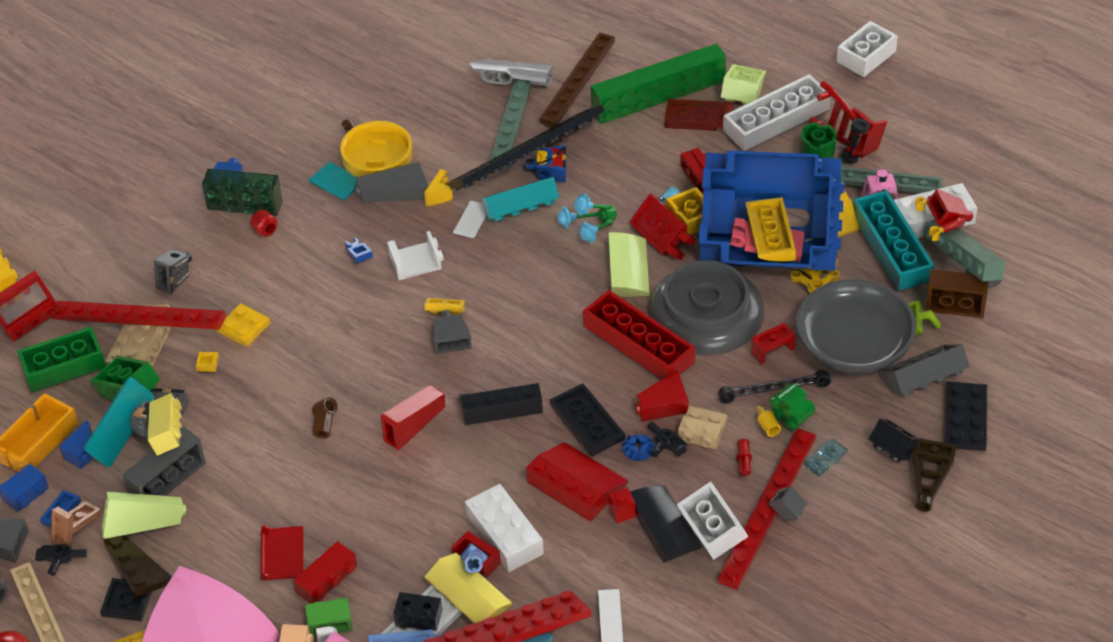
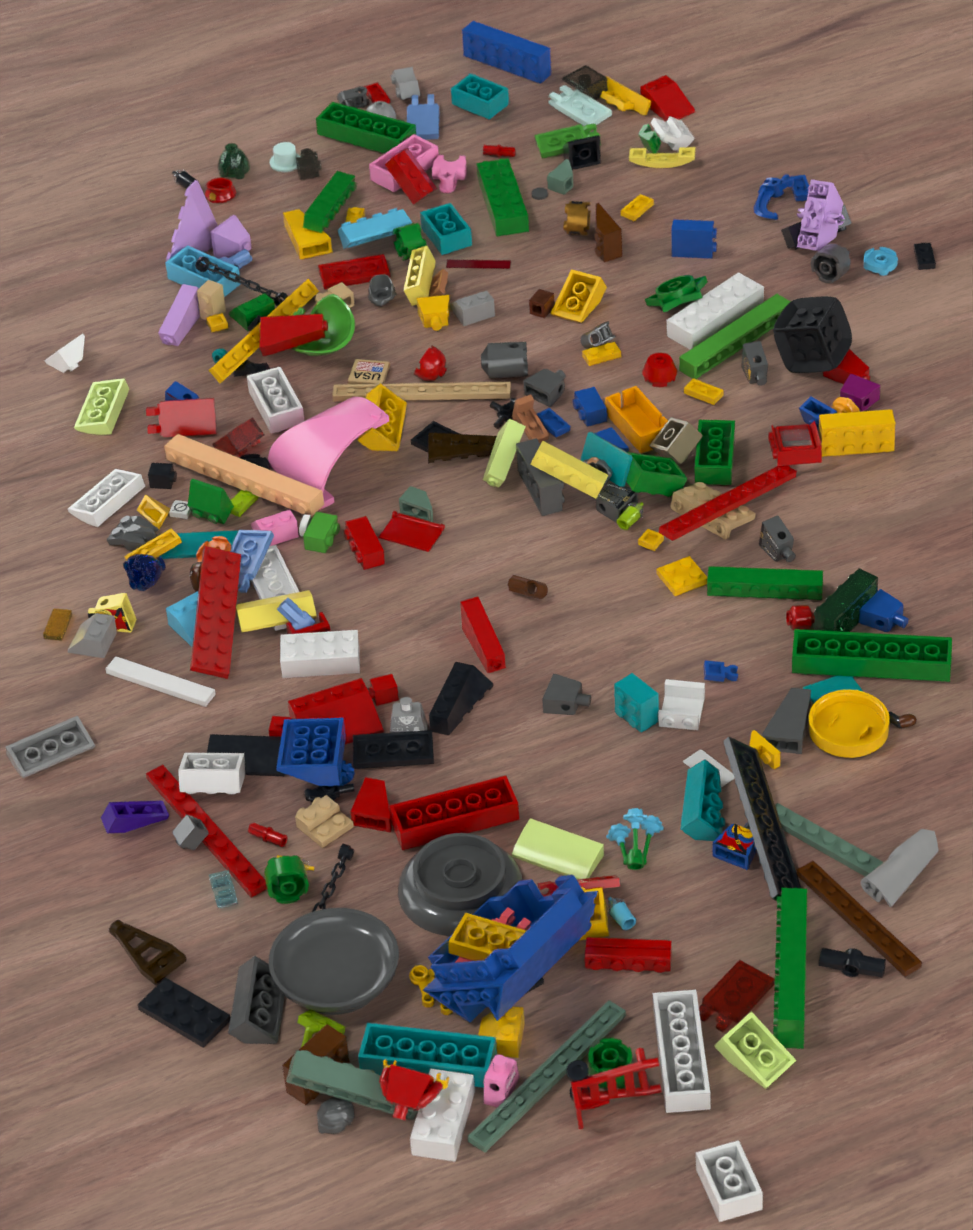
camera: 120 degrees right, 5 degrees down
(66, 381) = (676, 440): none -> dark tan brick
(191, 388) = (632, 513): none -> lime piece
(229, 262) = (765, 583): none -> green brick
(244, 558) = (416, 504): none -> sand green slope
(290, 162) = (872, 655): none -> green brick
(417, 611) = (275, 571): black brick -> none
(437, 273) = (636, 702): none -> teal brick
(437, 305) = (600, 704): yellow plate -> none
(518, 458) = (383, 689): none -> red brick
(550, 412) = (408, 716): none -> light grey torso
(622, 62) = (852, 962): none -> black piece
(641, 449) = (312, 750): none -> blue slope
(772, 340) = (373, 899): red panel -> none
(800, 563) = (128, 816): none -> dark purple slope
(893, 439) = (194, 934): black brick -> none

